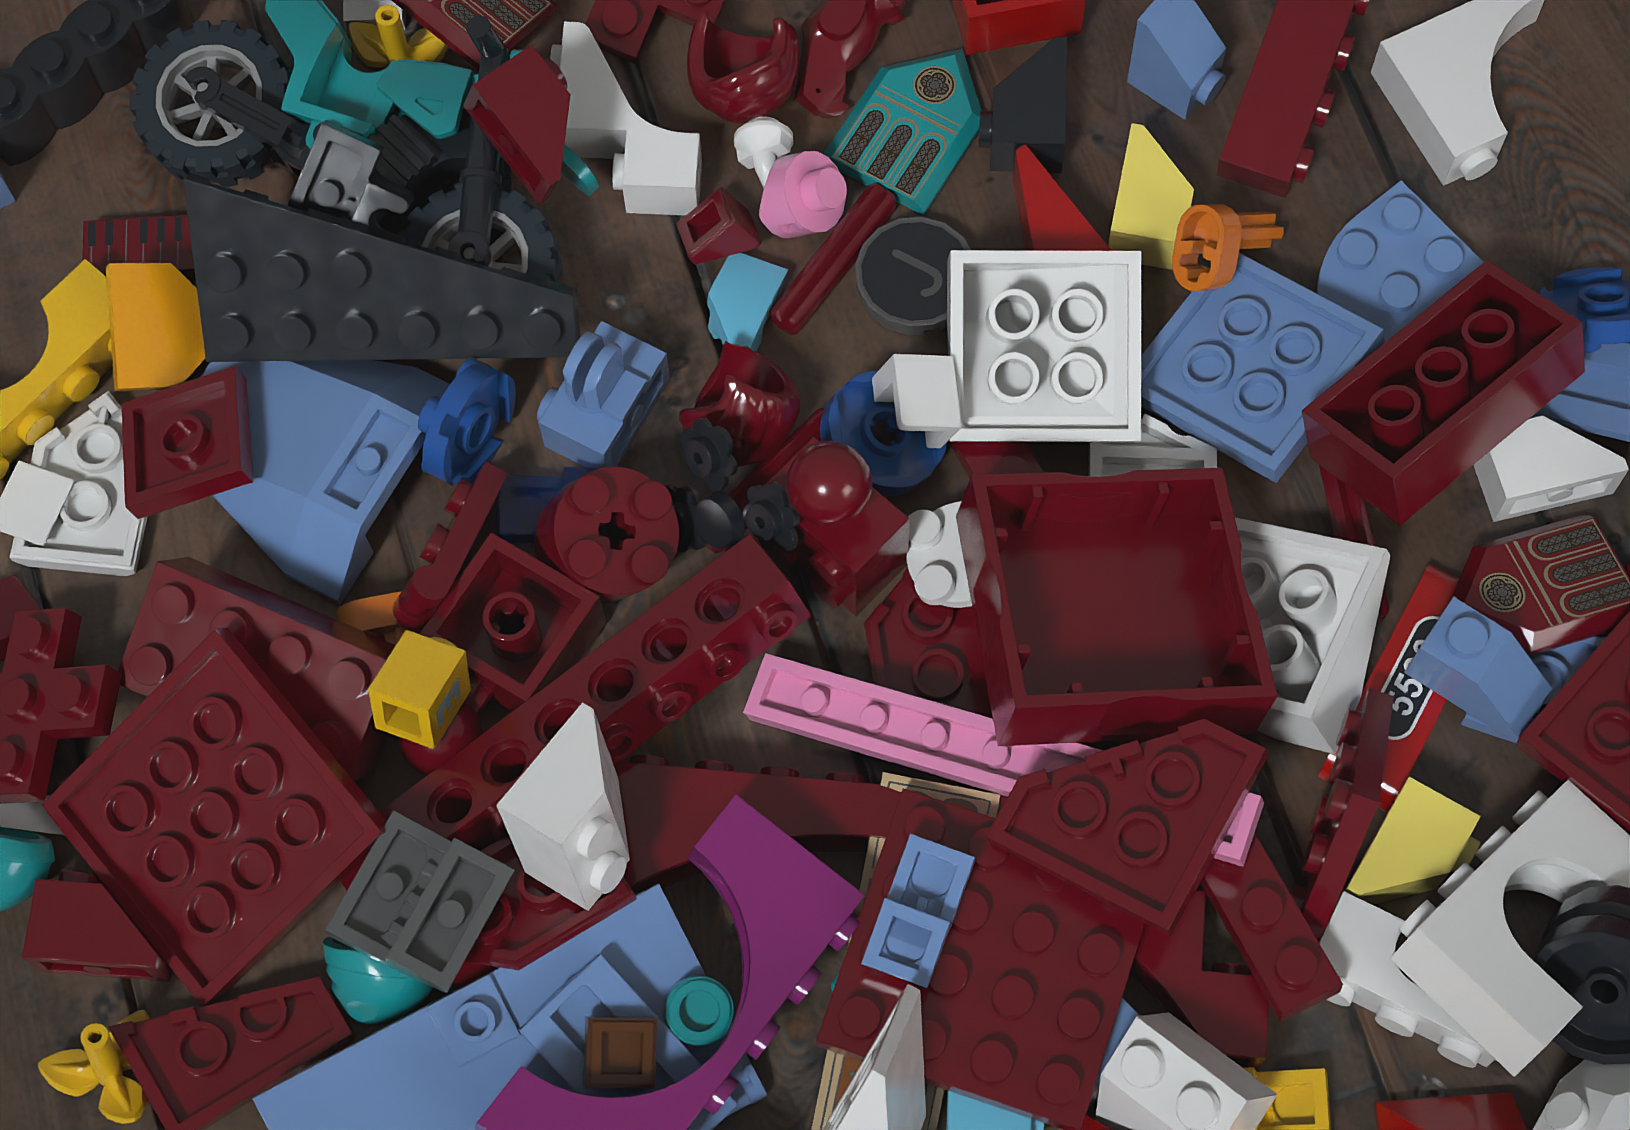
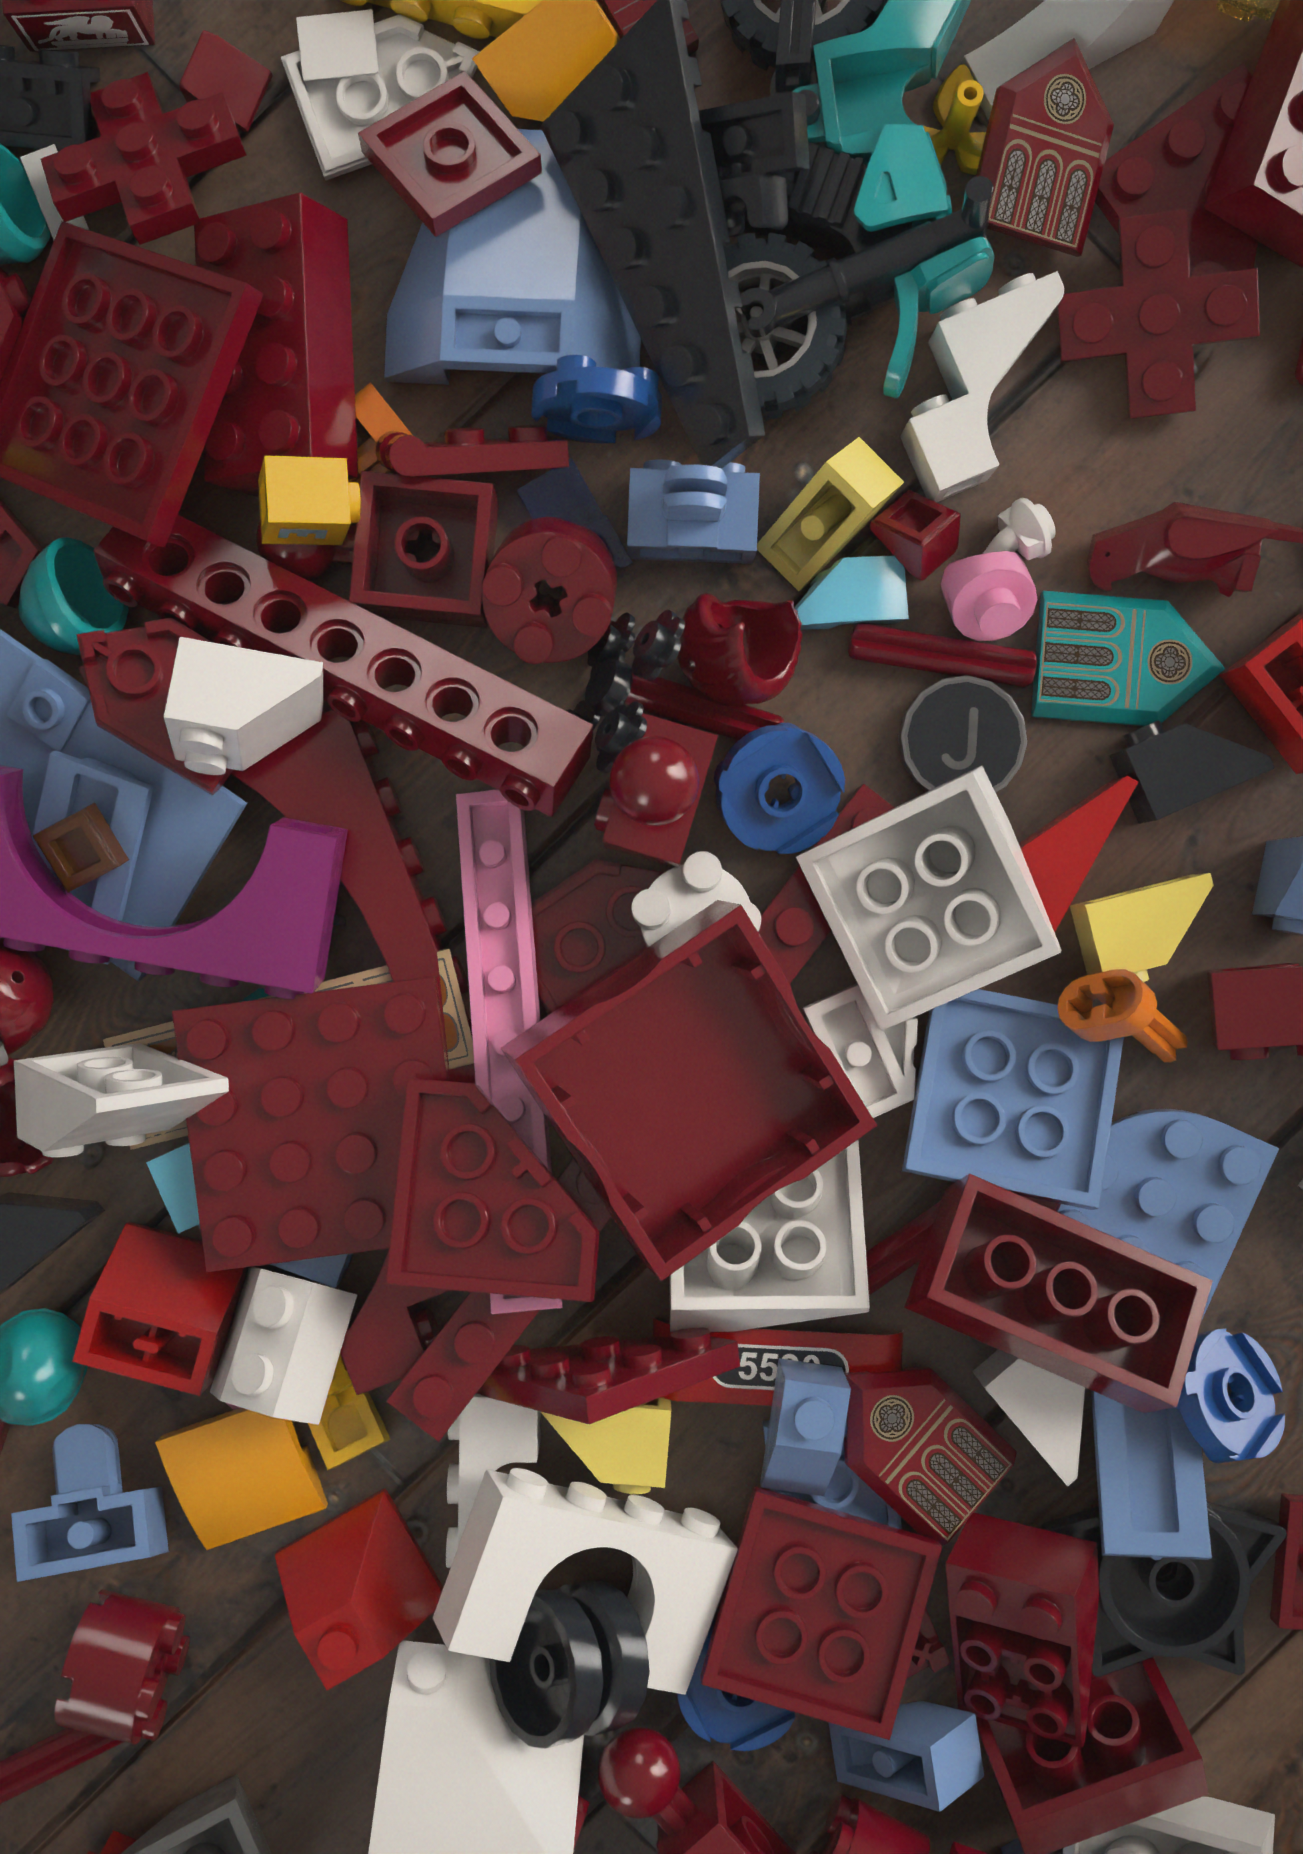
camera: 60 degrees right, 20 degrees up
(419, 902) = (108, 607): dark grey slope -> none
(525, 118) = (911, 289): dark red slope -> none
(665, 289) = (829, 513): none -> light yellow slope
(698, 1010) = (161, 892): teal tile -> none
(739, 73) = (1089, 470): dark red piece -> none
(918, 911) = (317, 1049): medium blue slope -> none
(922, 395) = (821, 811): white panel -> none

